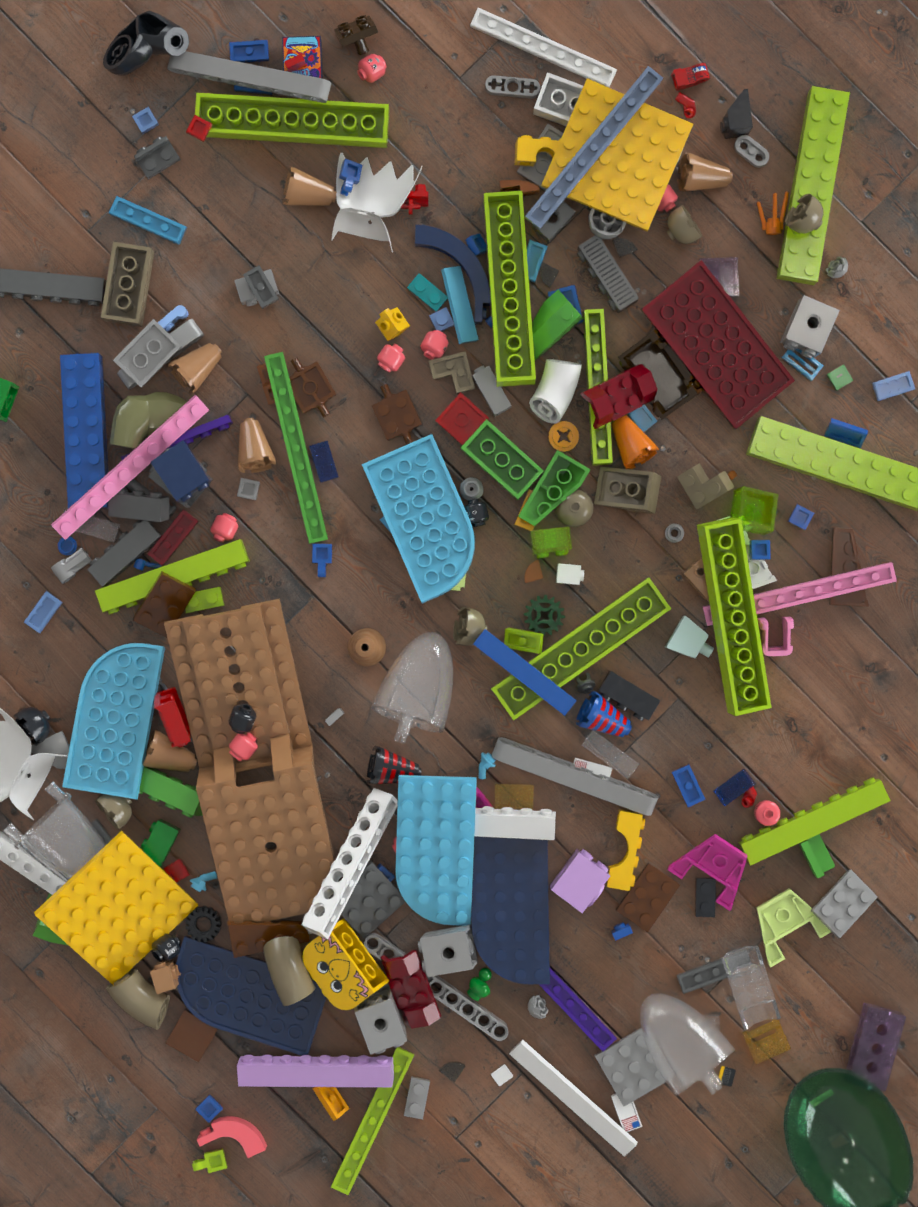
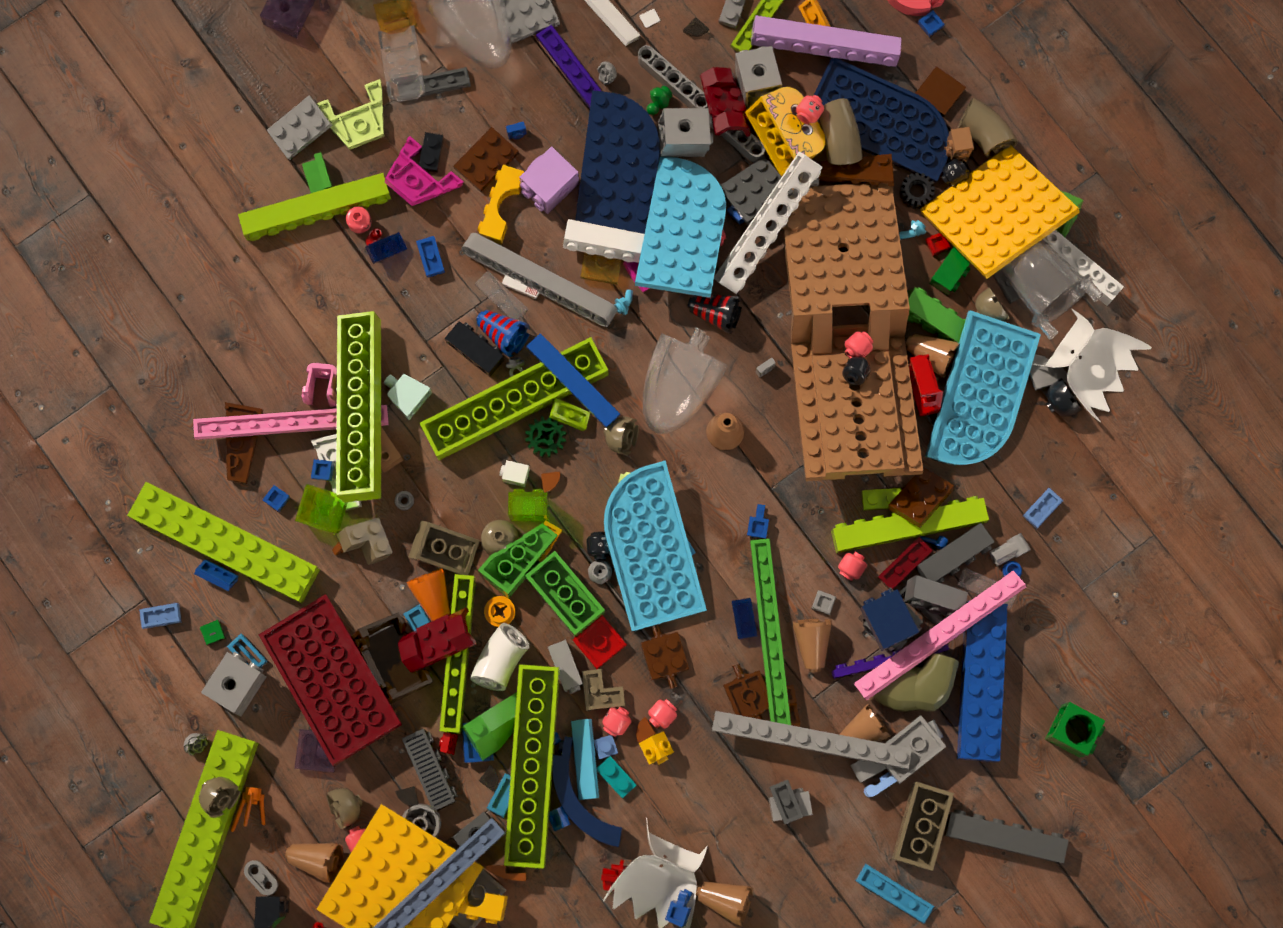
camera: 170 degrees left, 10 degrees down
(243, 348) = (812, 740): none -> light grey plate
(322, 987) = (810, 109): none -> coral head
(406, 340) = (644, 730): none -> dark orange tile
(593, 300) = (448, 743): none -> red plate

